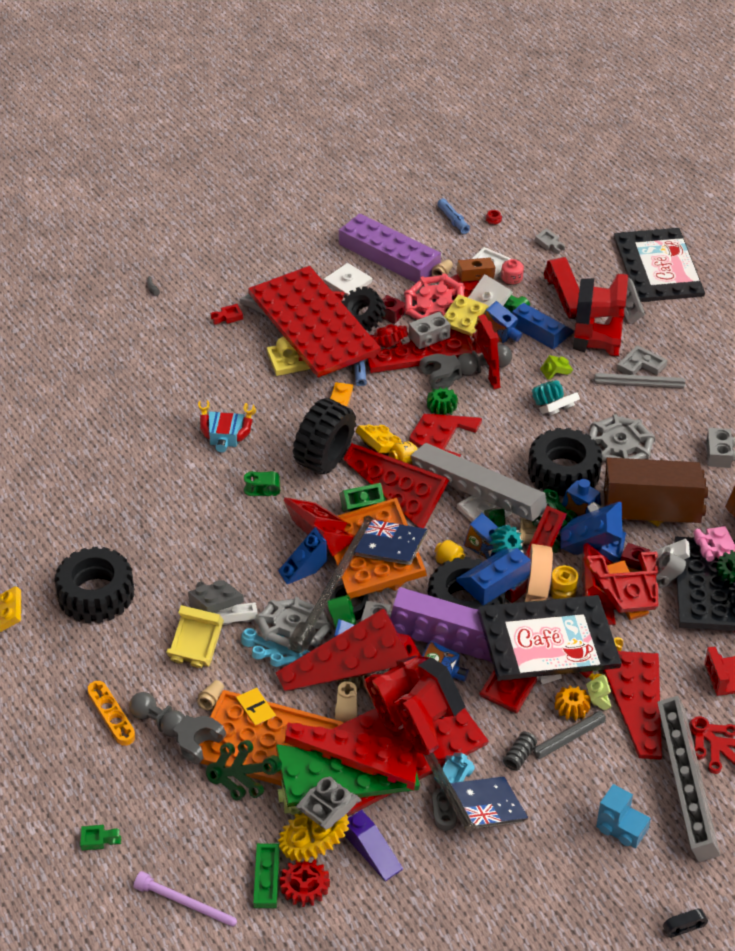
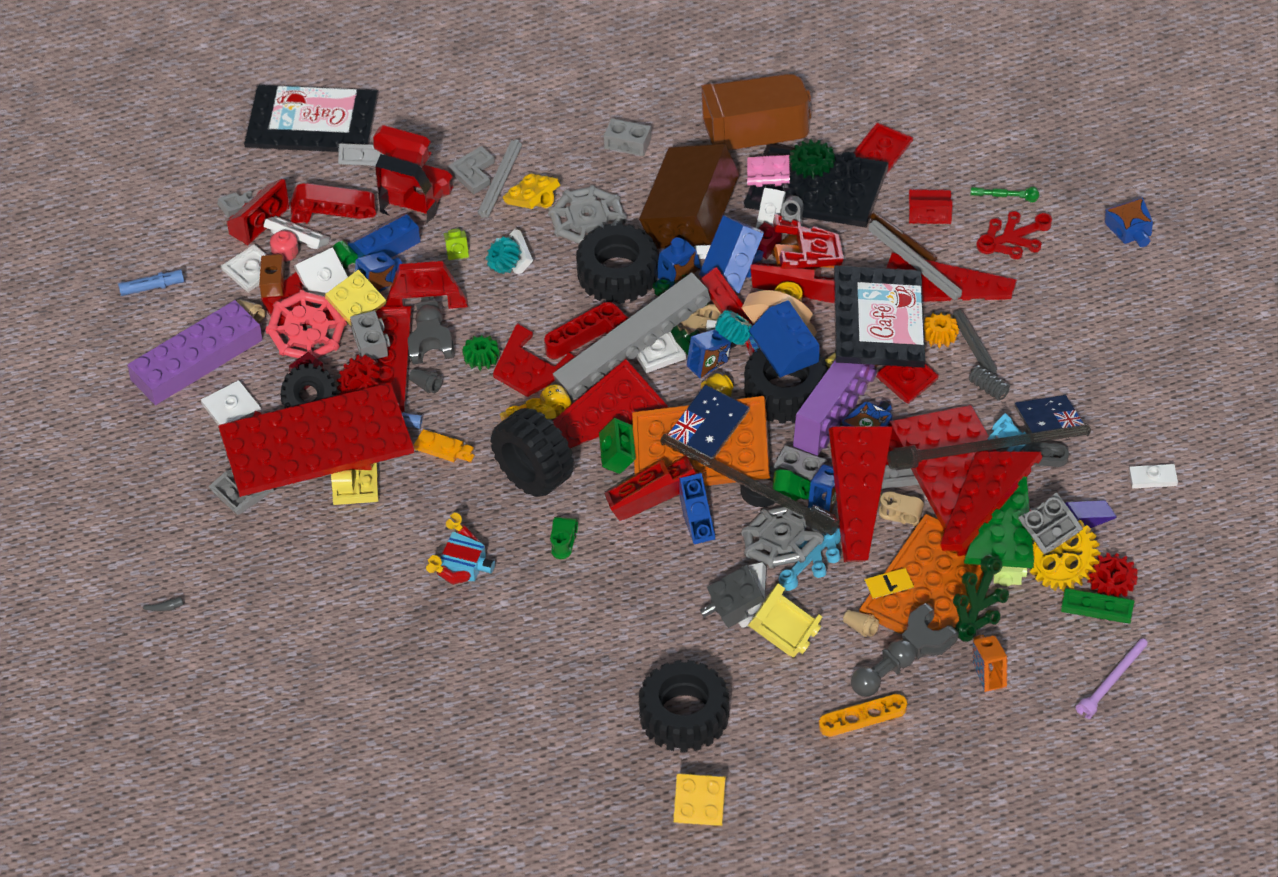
camera: 75 degrees left, 5 degrees up
(96, 836) = (1025, 742): green plate -> none
(177, 791) = (985, 652): none -> orange torso
(229, 314) = (254, 530): red plate -> none
(403, 377) = (426, 380): none -> dark grey cone
(414, 698) = (938, 412): red piece -> none
(444, 905) = (1153, 476): none -> white plate
(485, 454) = (583, 329): none -> red beam
(493, 217) = (168, 241): red plate -> none
(531, 277) = (312, 238): none -> white plate
(537, 250) = (250, 219): none -> red slope
(598, 692) = (937, 301): yellowish green bracket -> none
(621, 820) = (1088, 321): dark azure brick -> none
(634, 399) = (532, 192): none -> yellow plate
(647, 667) = (915, 260): none -> light grey axle
(683, 661) = (904, 238): none -> reddish brown bar
(685, 922) = (1205, 305): black beam -> none
(688, 779) = (1052, 262): light grey brick -> none

